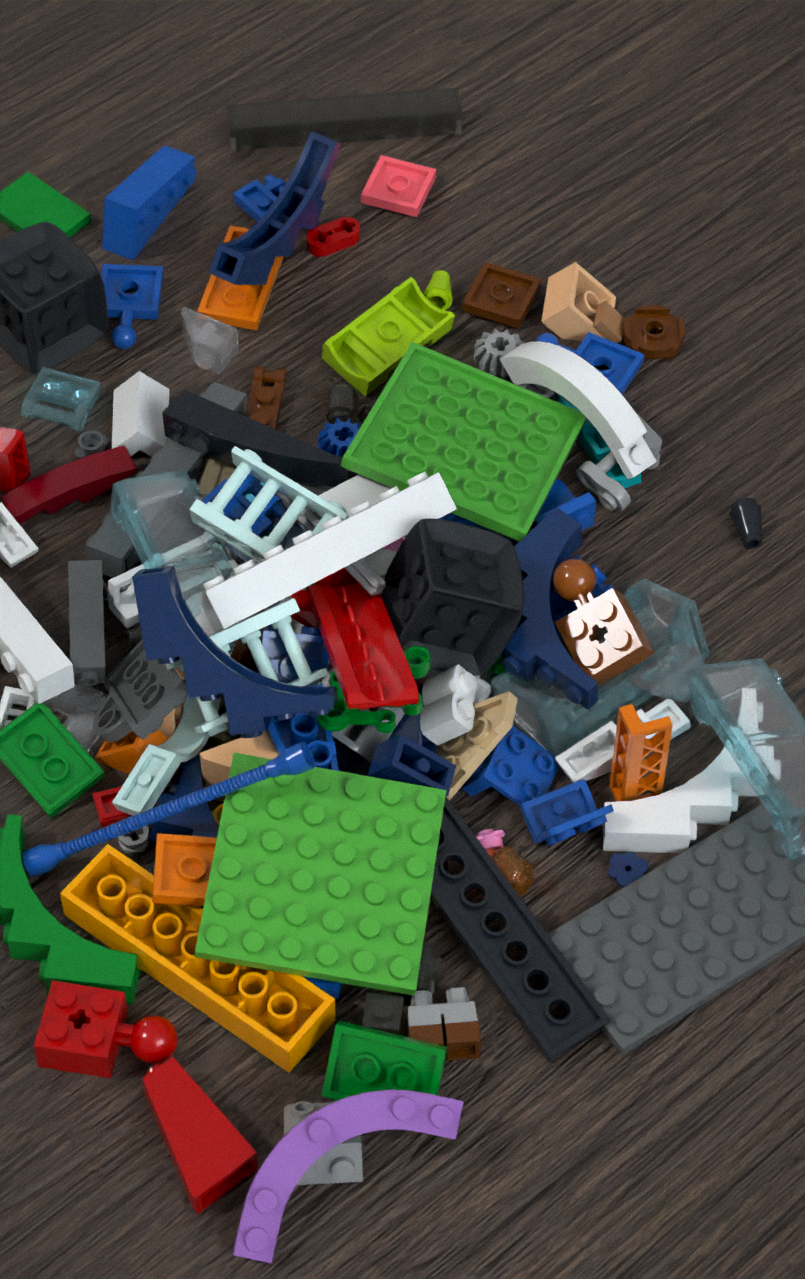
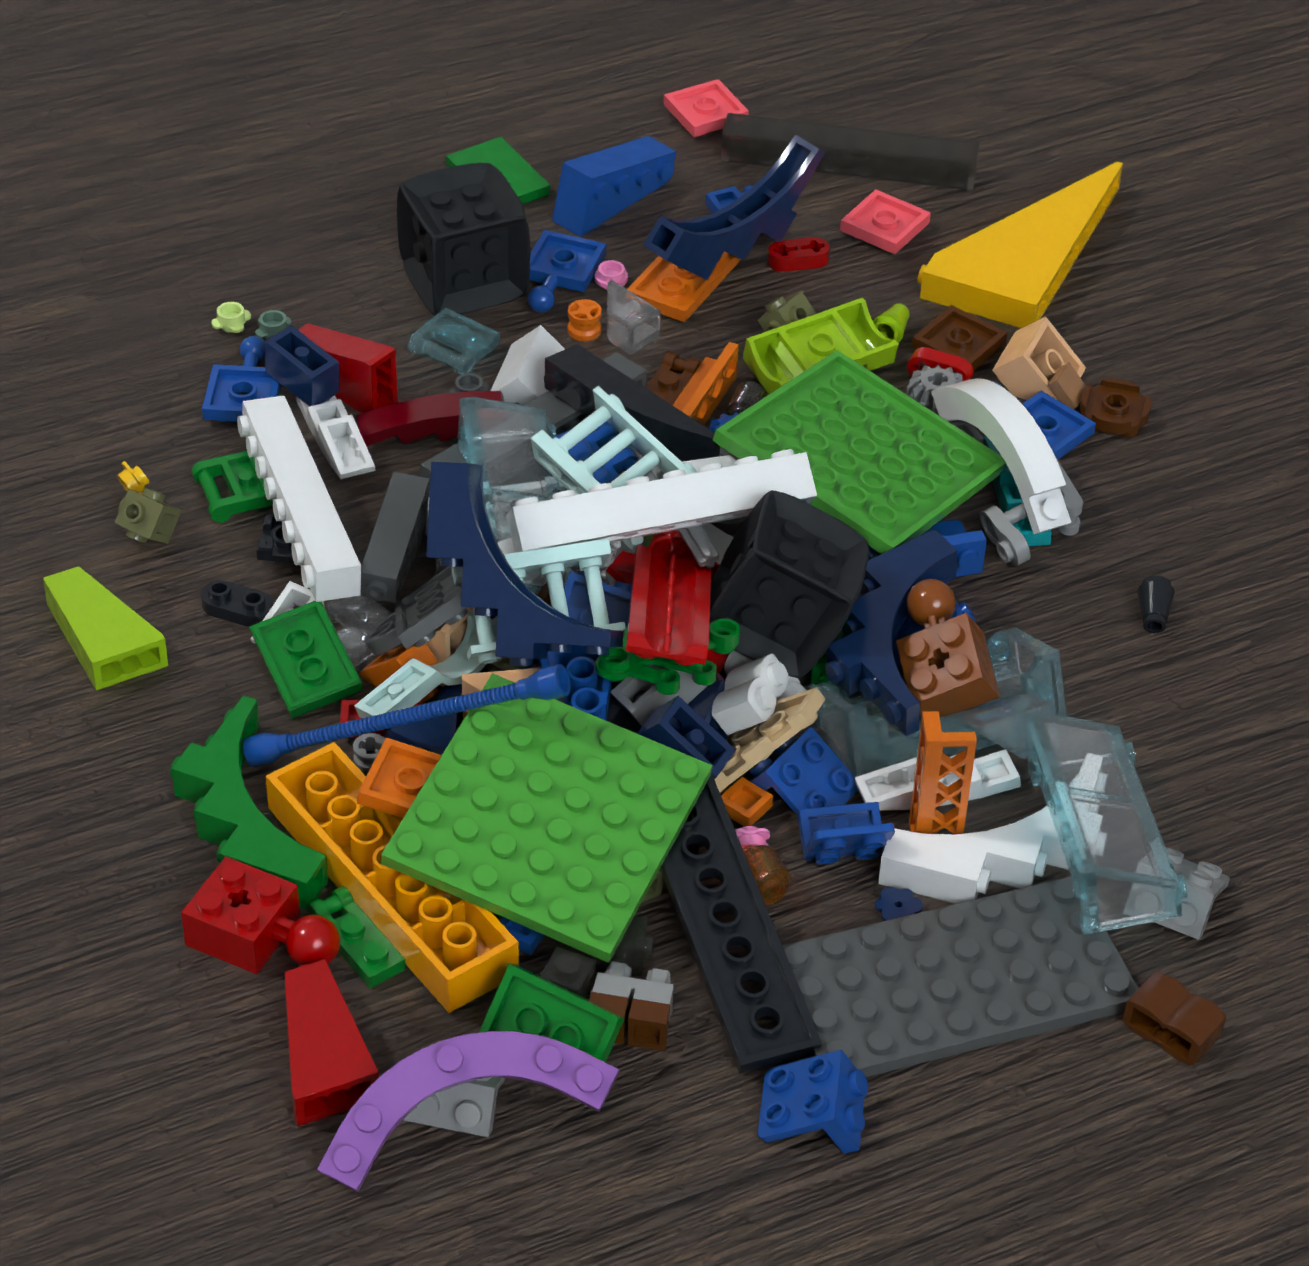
camera: 15 degrees right, 10 degrees down
(169, 350) = (584, 320): none -> orange wheel
(176, 296) = (609, 271): none -> bright pink plate
(193, 1025) = (361, 941): none -> green plate
(201, 99) = (703, 107): none -> coral plate
(299, 397) = (709, 385): none -> orange fence
(347, 306) = (784, 311): none -> olive brick
(472, 803) = (746, 802): none -> orange plate
(491, 321) = (934, 357): none -> red beam
(526, 203) = (1022, 260): none -> yellow slope
(619, 1074) = (813, 1096): none -> blue bracket

